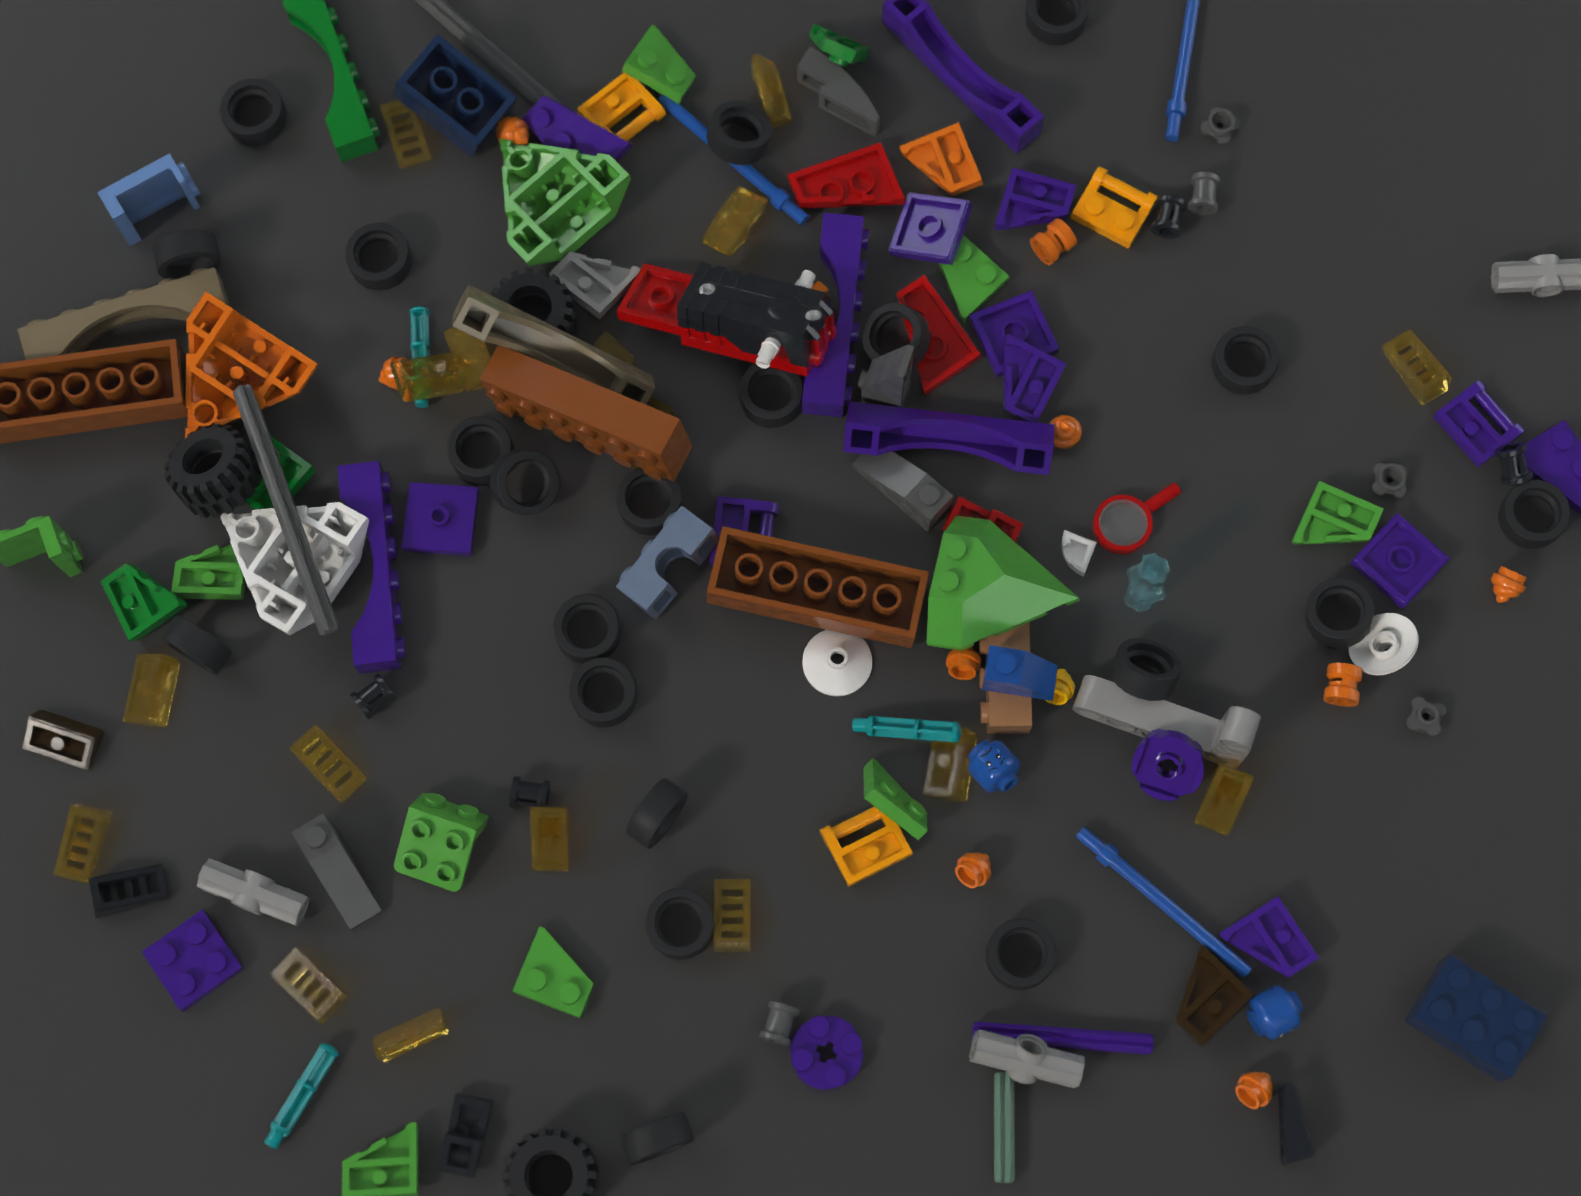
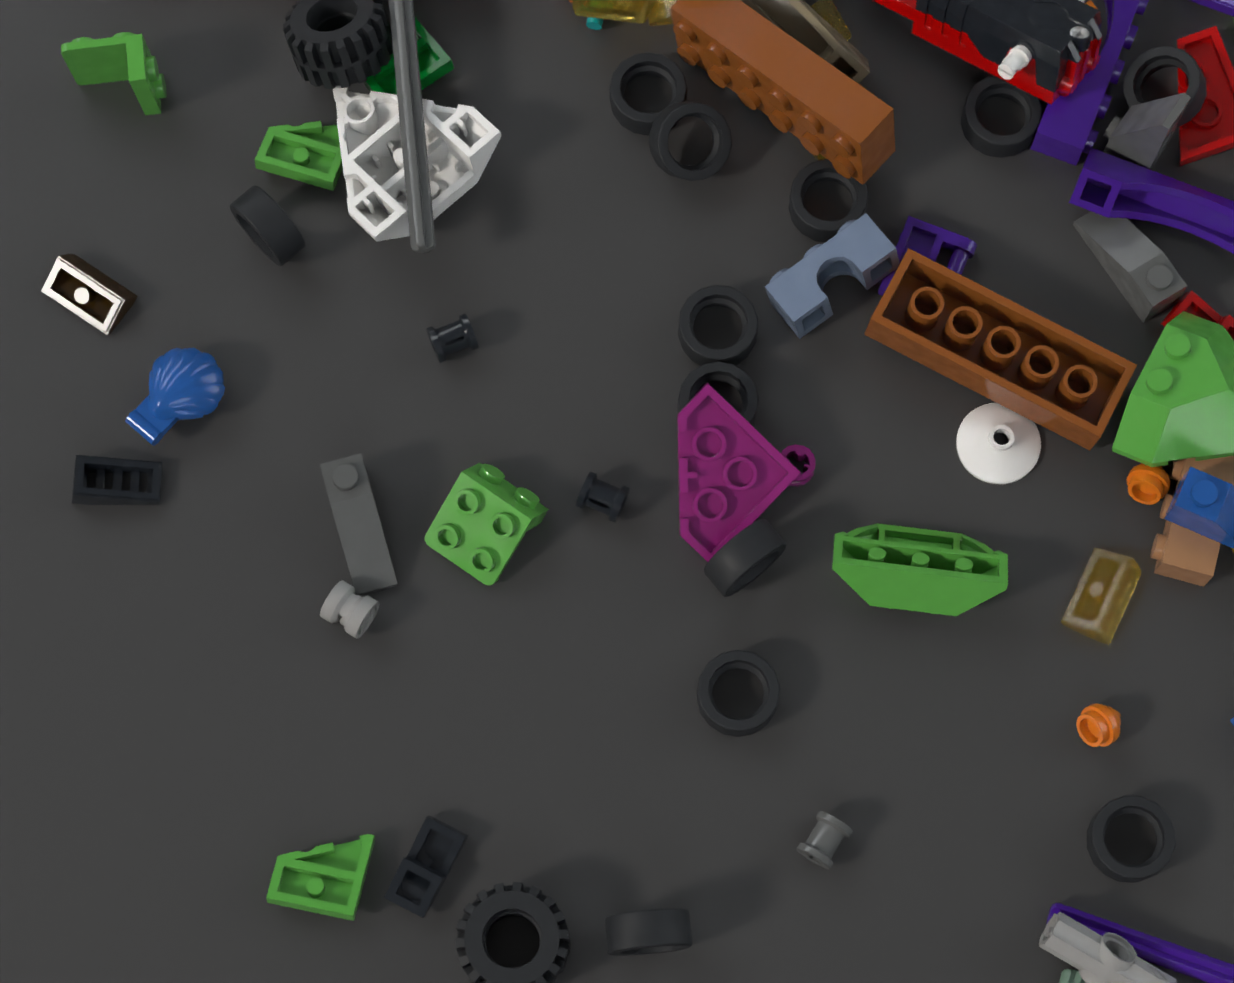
camera: 15 degrees right, 0 degrees up
(69, 839) = (74, 392): clear yellow slope -> none
(140, 600) = (217, 160): green wing -> none
(151, 690) = (203, 264): clear yellow slope -> none
(160, 798) = (181, 387): none -> blue animal
(192, 960) = (168, 581): dark purple plate -> none
(253, 892) = (257, 522): light grey piece -> none
(301, 1094) = (251, 767): teal piece -> none
(306, 742) = (365, 368): clear yellow slope -> none
(328, 1005) = (311, 672): clear yellow slope -> none
(350, 944) = (349, 609): none -> light grey wheel
(375, 635) = (473, 269): dark purple arch -> none
(410, 1035) = (392, 734): clear yellow slope -> none
(440, 519) = (581, 159): dark purple plate -> none
(550, 838) = (613, 553): clear yellow slope -> none
(553, 977) = (574, 714): bright green wing -> none
(622, 748) = (723, 472): none -> magenta plate
(680, 714) = (801, 453): none -> magenta bush
(732, 944) = (793, 733): clear yellow slope -> none
(797, 783) = (919, 568): none -> bright green wedge
(835, 1072) = (896, 887): dark purple plate -> none
(869, 853) = (983, 672): light orange plate -> none
(893, 800) = (1027, 622): bright green wing -> none
(908, 728) = (1064, 541): teal piece -> none
(994, 766) = (1154, 612): blue head -> none

